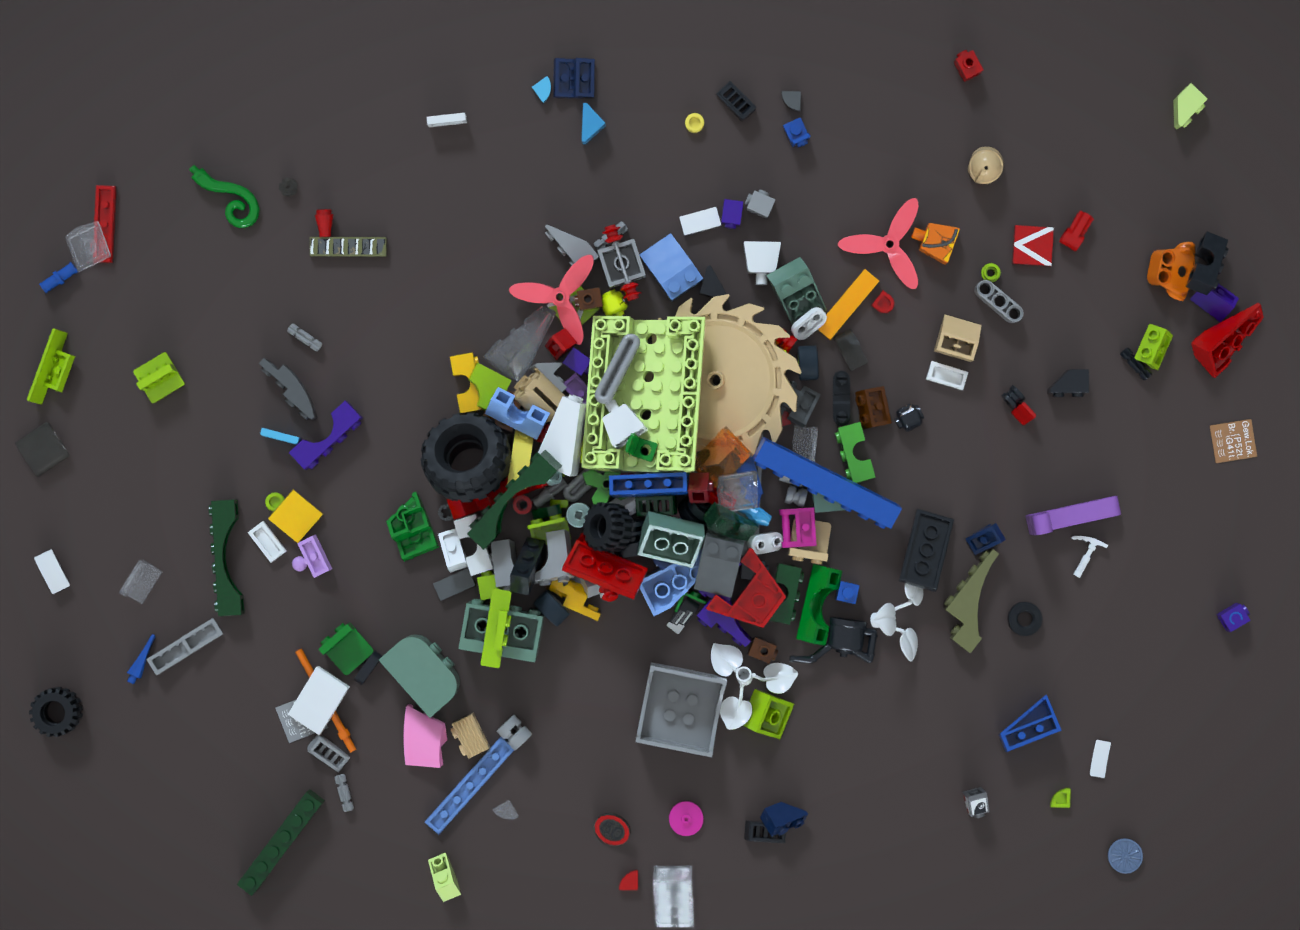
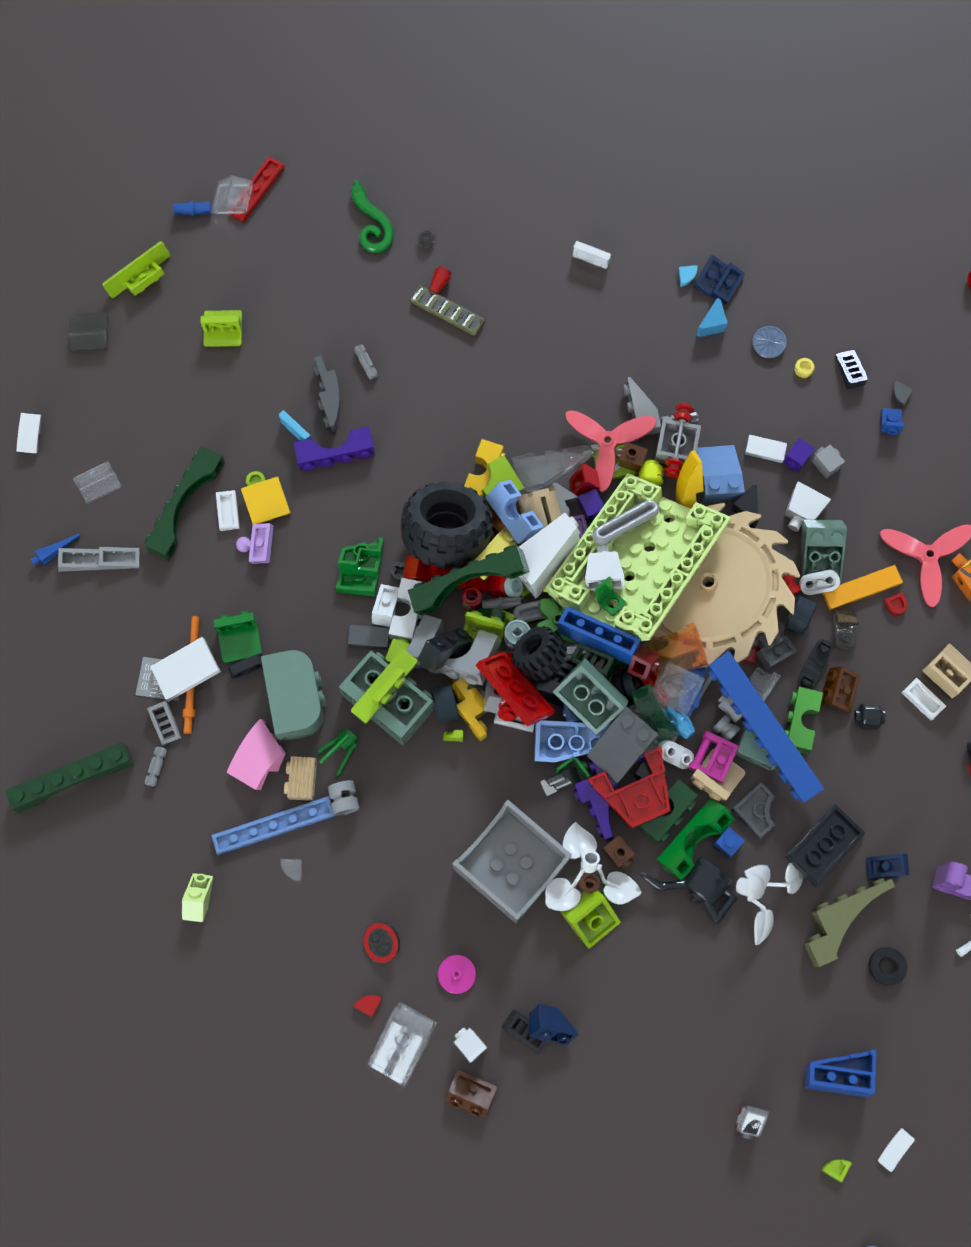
camera: 30 degrees right, 15 degrees down
(487, 683) = (344, 740): none -> green plant
(574, 629) = (456, 735): none -> lime tile
(651, 115) = (769, 342): none -> sand blue wheel
(651, 298) = (689, 481): none -> yellow slope
(727, 868) = (469, 1044): none -> white slope
(749, 903) = (470, 1094): none -> reddish brown bracket
(752, 690) = (589, 882): none -> reddish brown plate
(854, 549) = (755, 810): none -> dark grey tile

